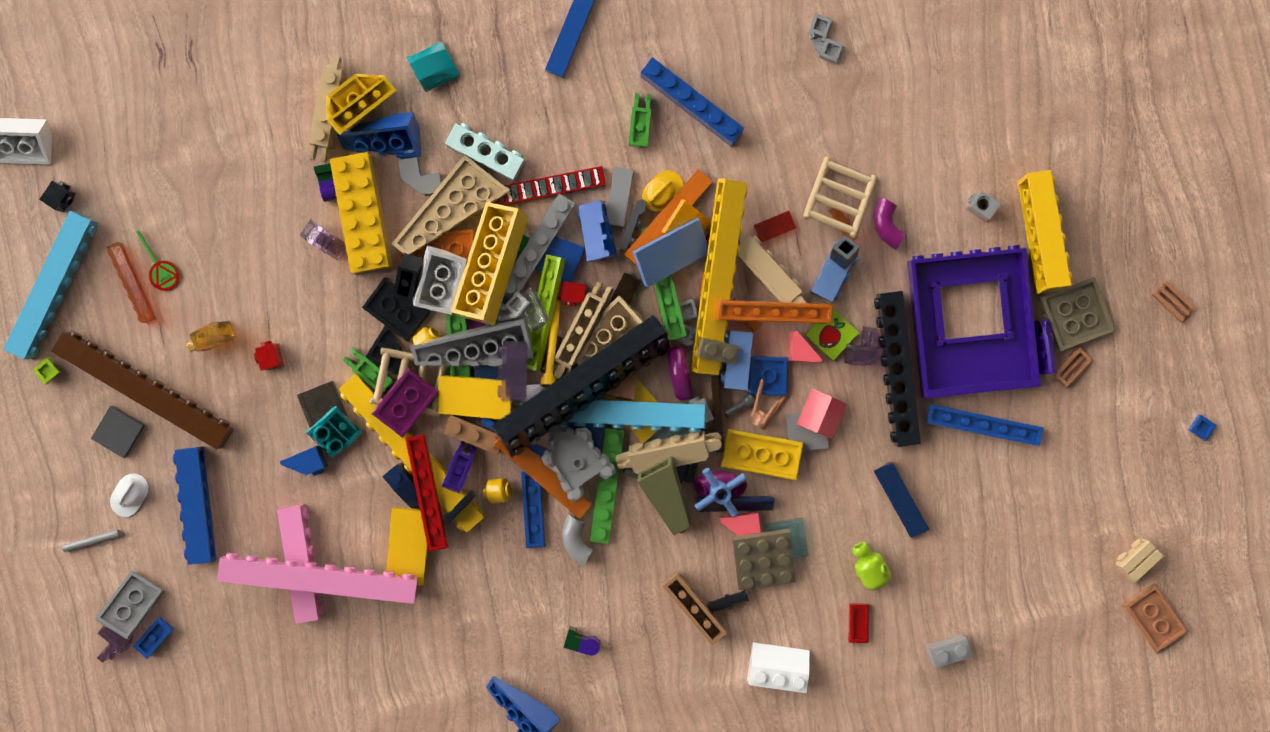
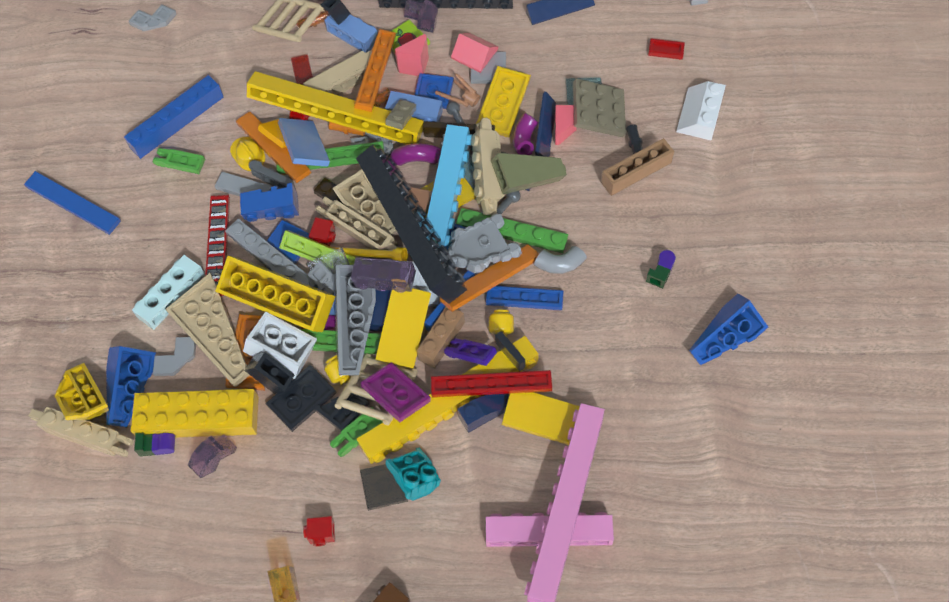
camera: 80 degrees left, 25 degrees down
(307, 462) = (440, 506): blue slope -> none
(433, 66) = (72, 328): teal slope -> none
(723, 498) = (531, 127): medium blue bar -> none
(870, 567) = (616, 30): lime piece -> none

